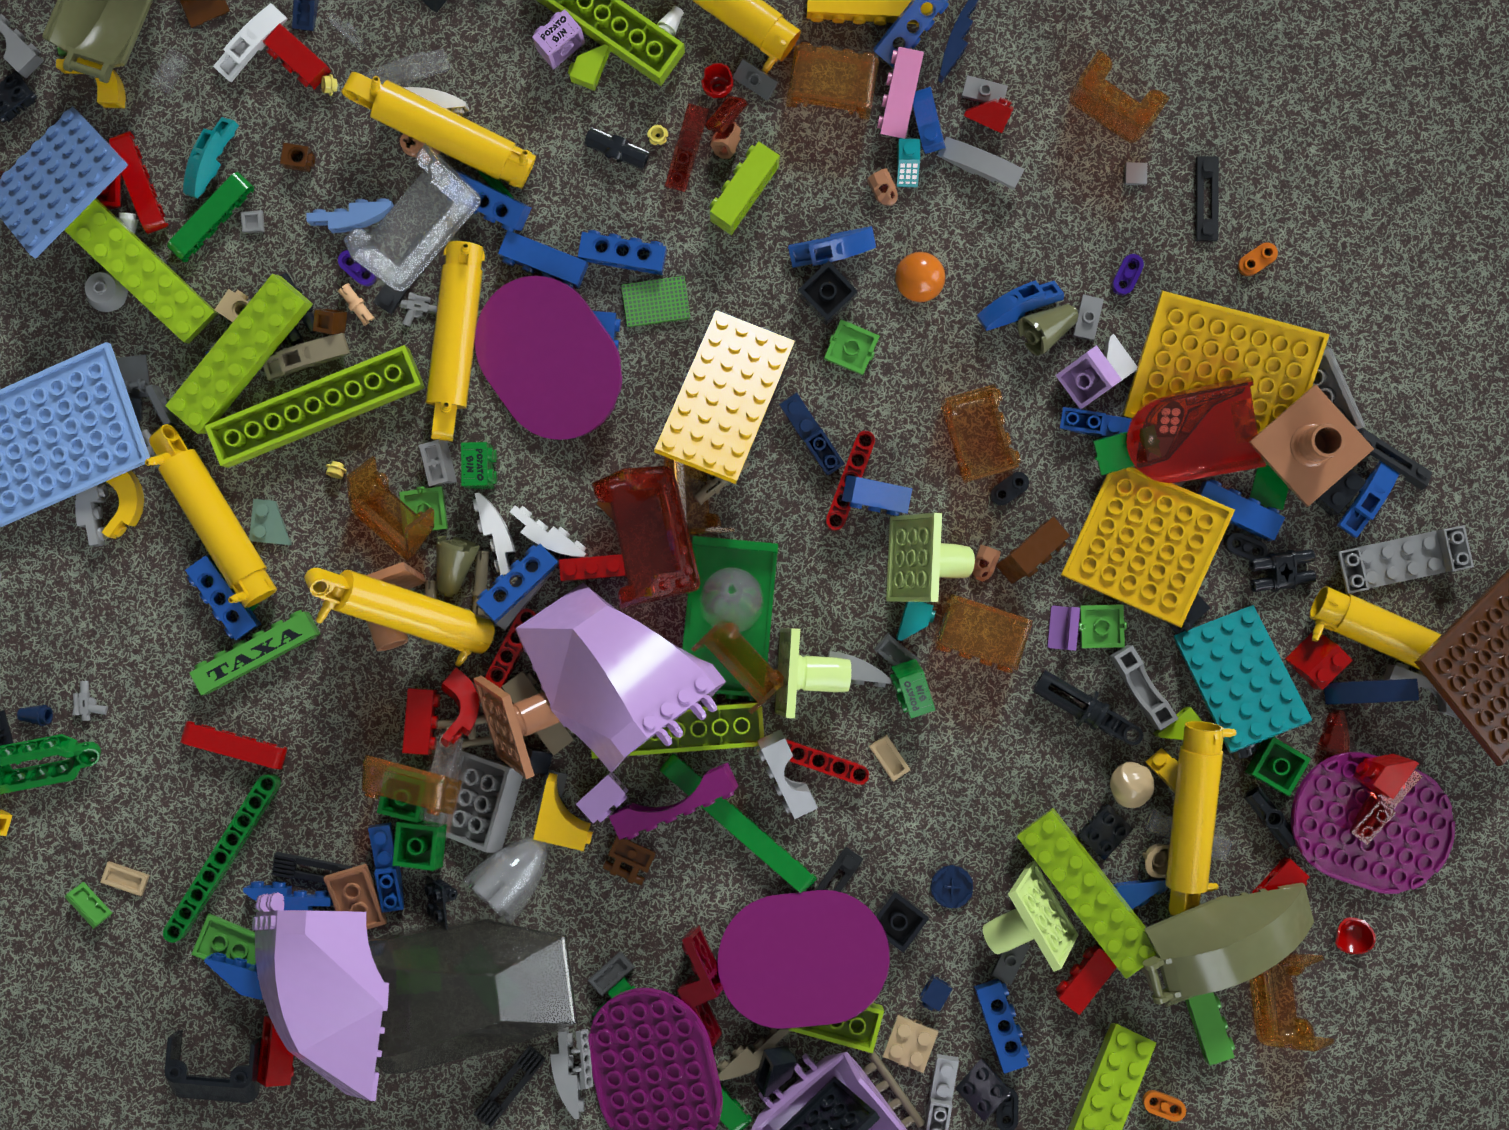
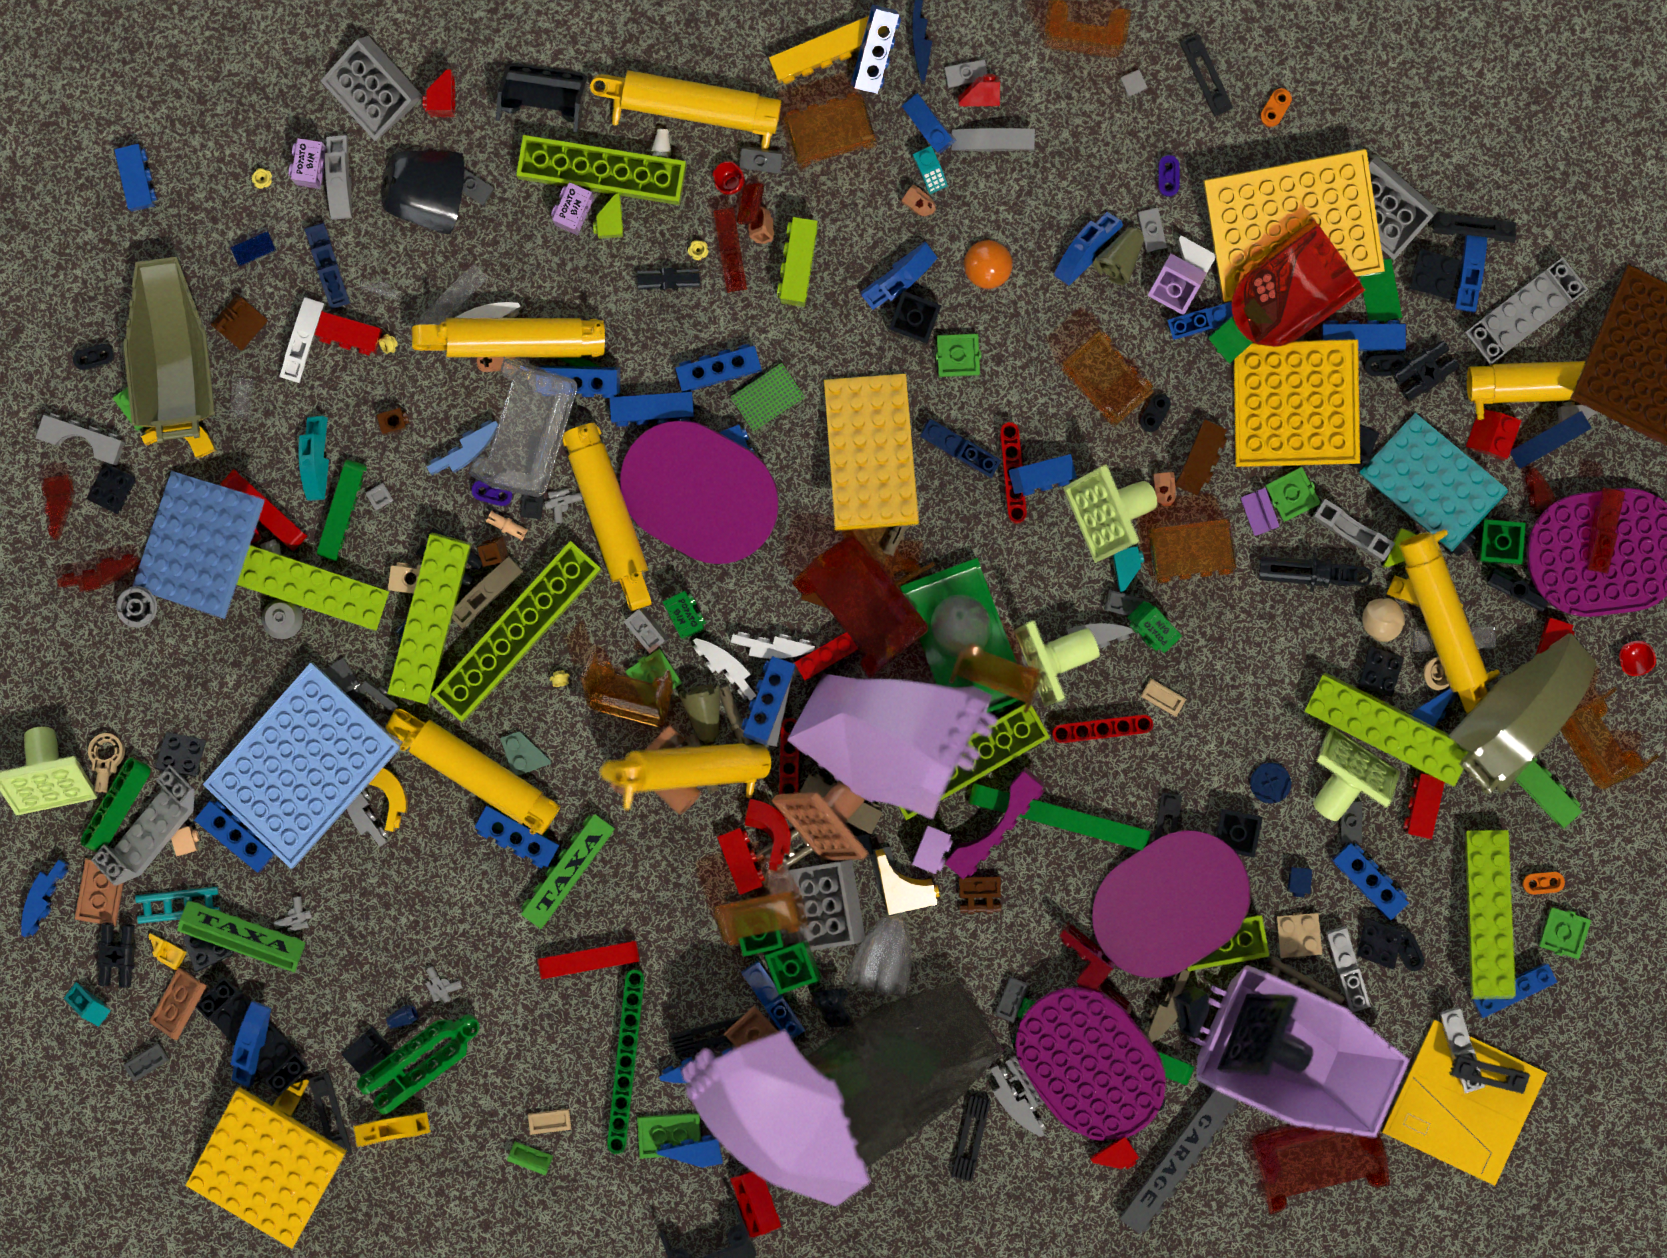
camera: 20 degrees left, 0 degrees up
(777, 754) = (1064, 738): light grey arch -> none
(901, 93) = (895, 112): bright pink brick -> none
(1311, 445) = (1397, 252): nougat piece -> none
(1385, 773) = (1591, 506): red slope -> none

